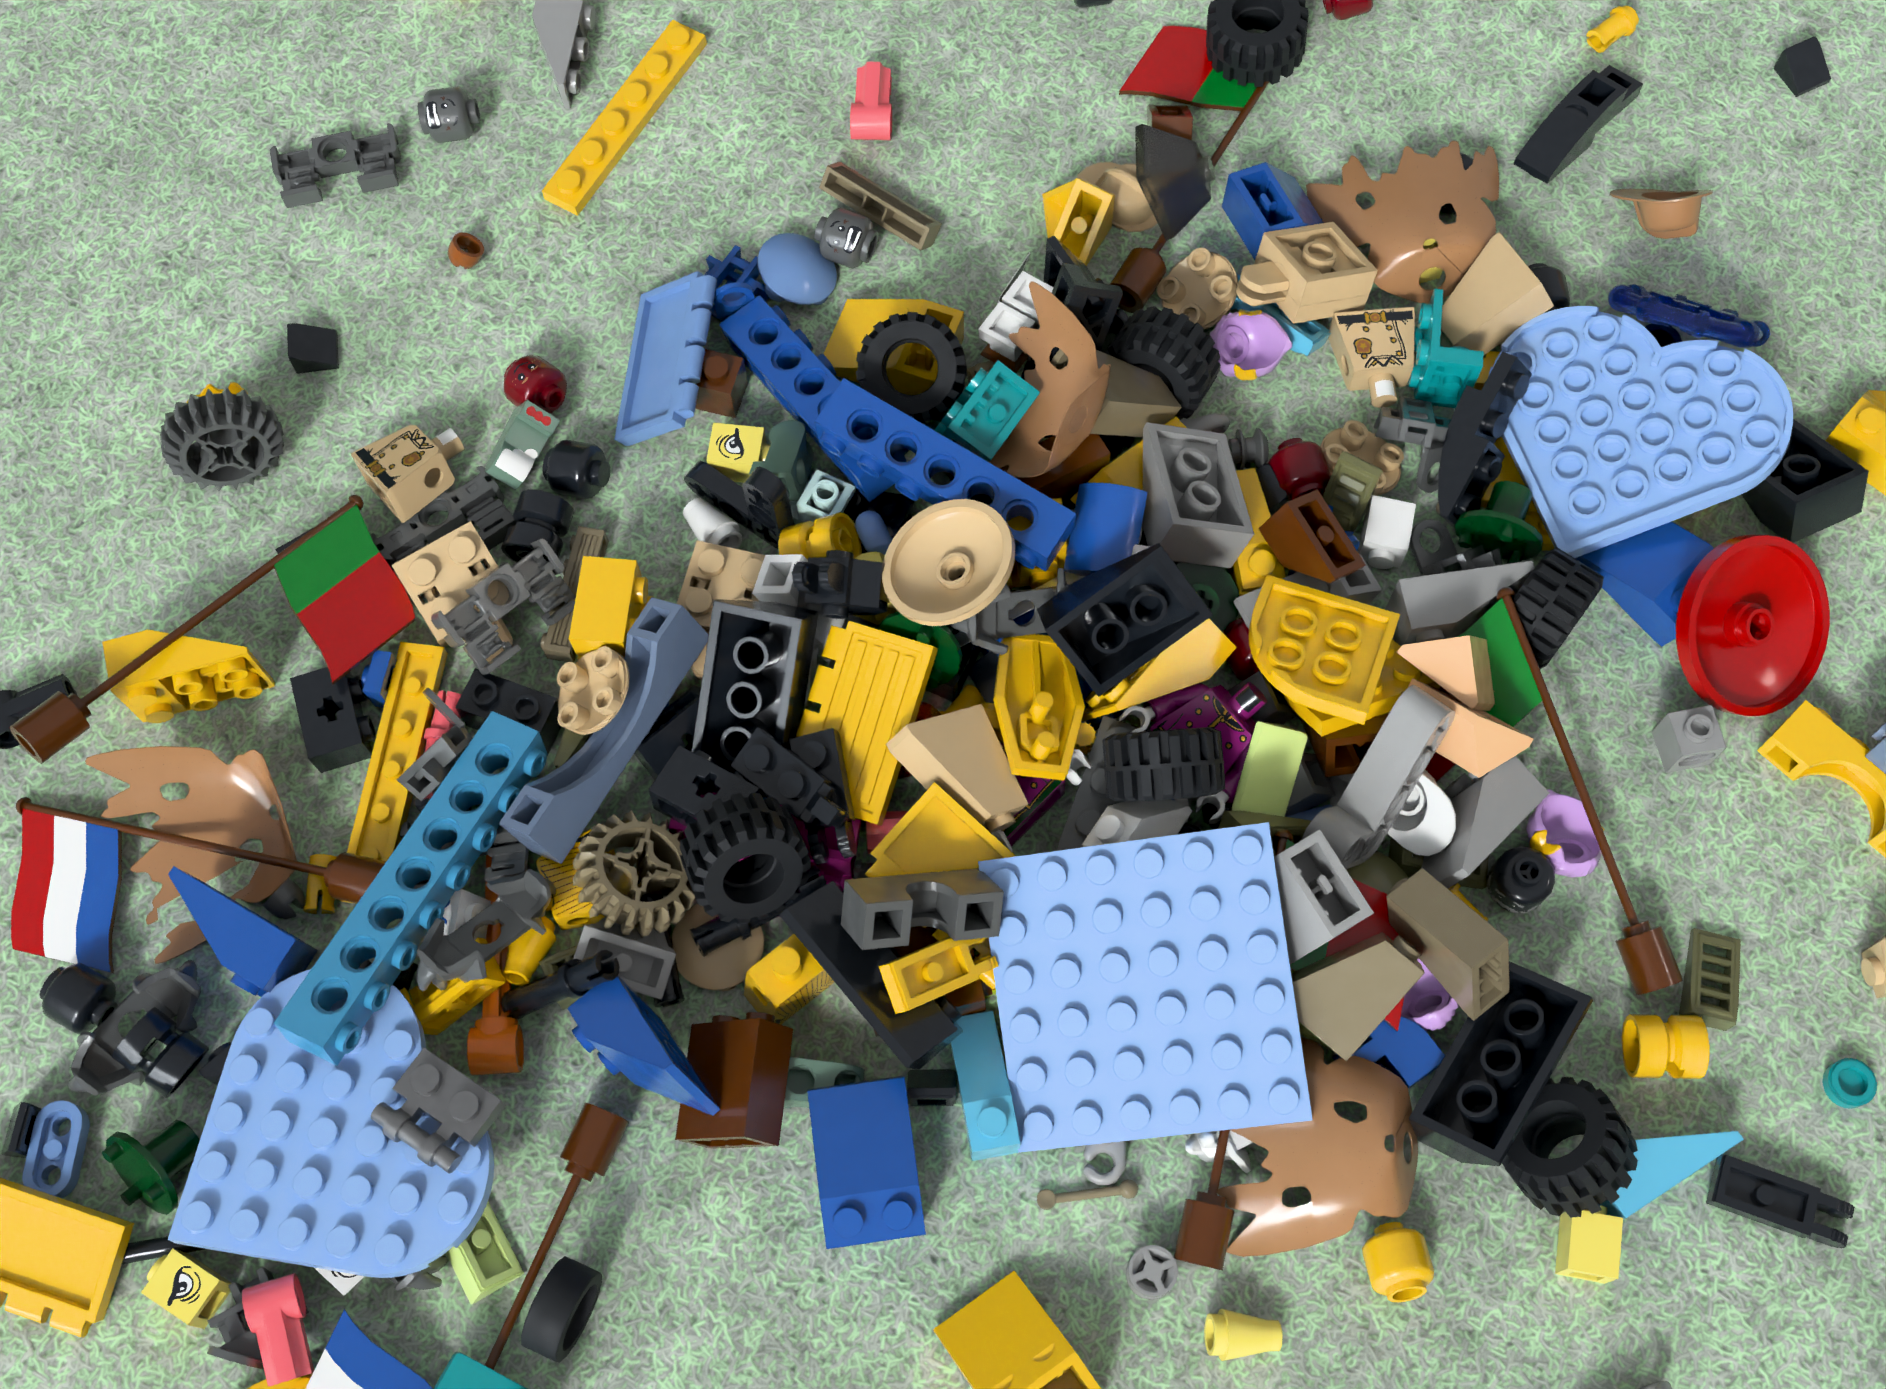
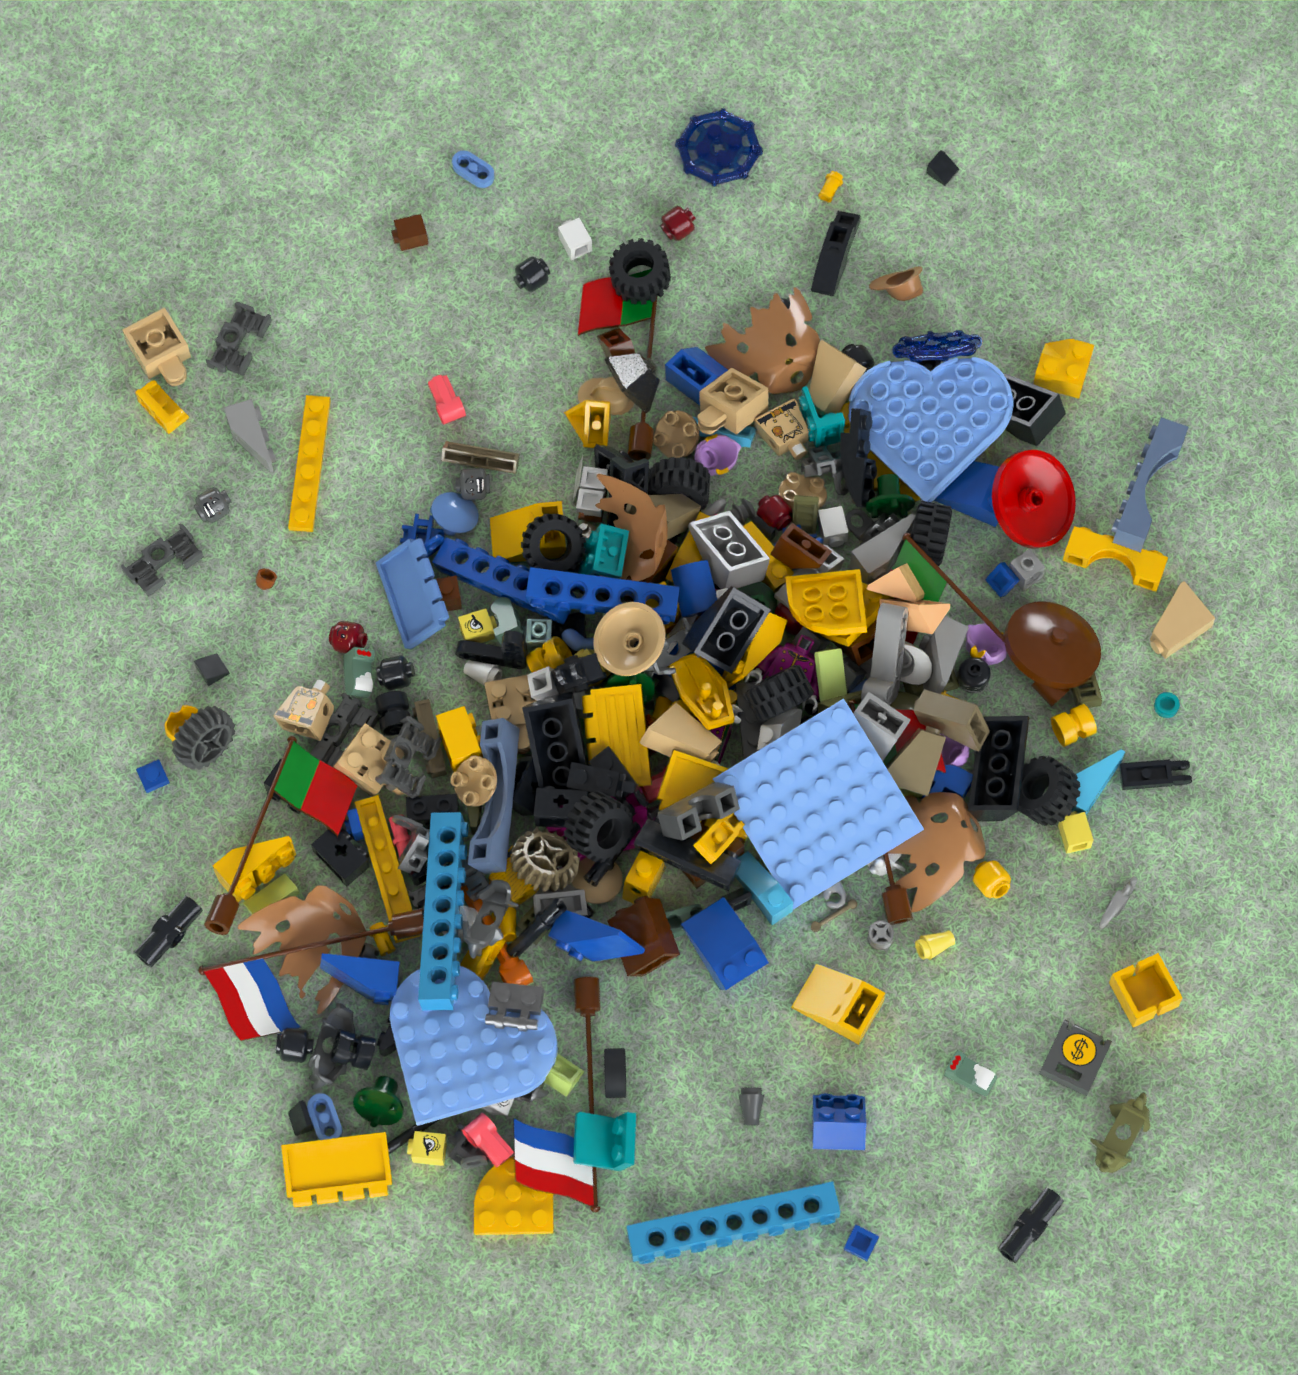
camera: 25 degrees left, 0 degrees up
(134, 470) = (152, 776): none -> blue plate
(213, 731) = (274, 892): none -> yellowish green slope
(1639, 738) = (1002, 579): none -> blue plate
(1684, 888) = (1052, 645): none -> reddish brown dish

